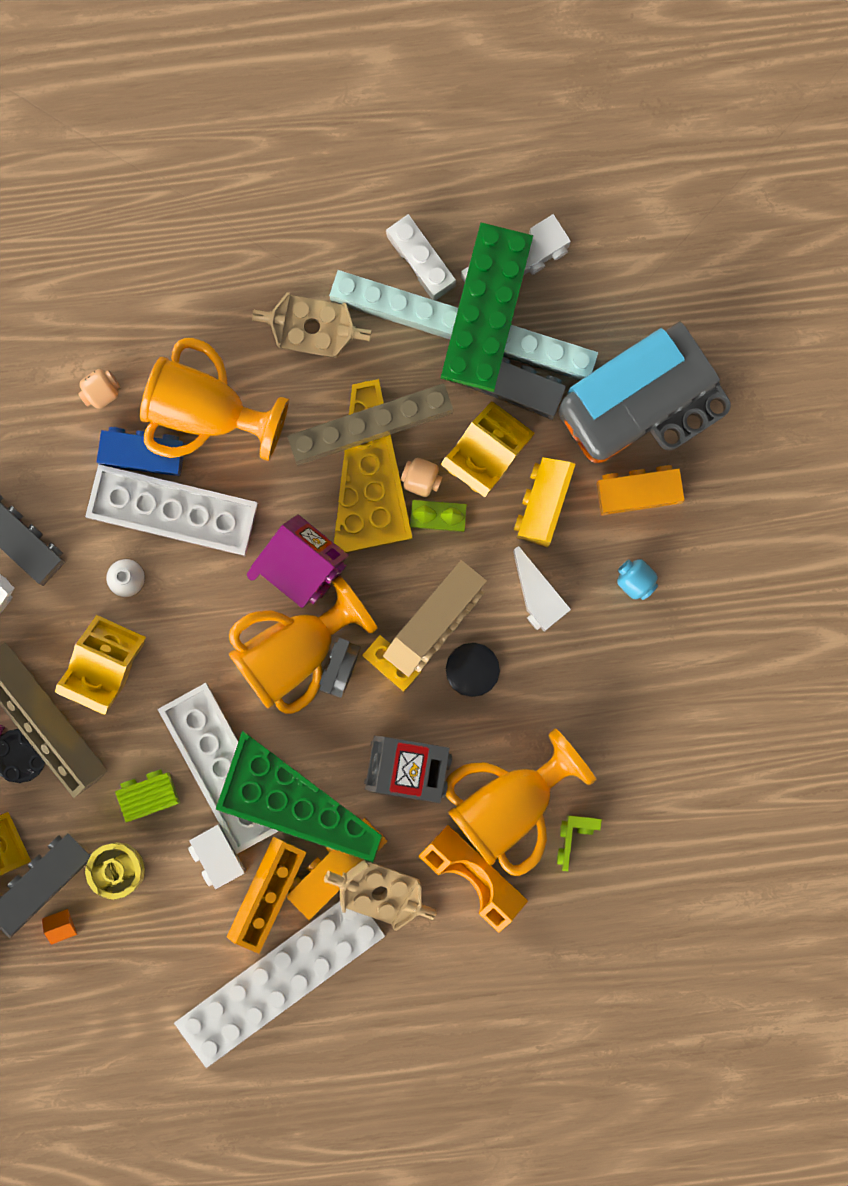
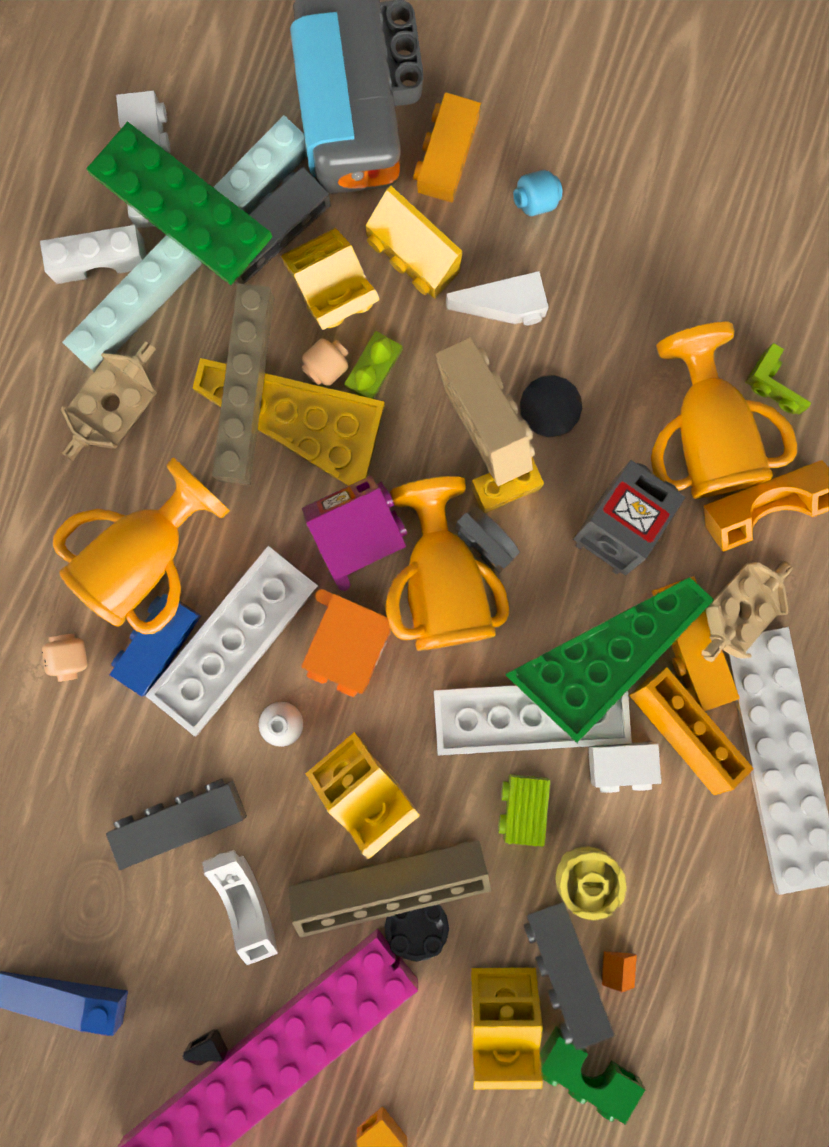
camera: 65 degrees left, 0 degrees up
(208, 598) = (346, 644): none -> orange container

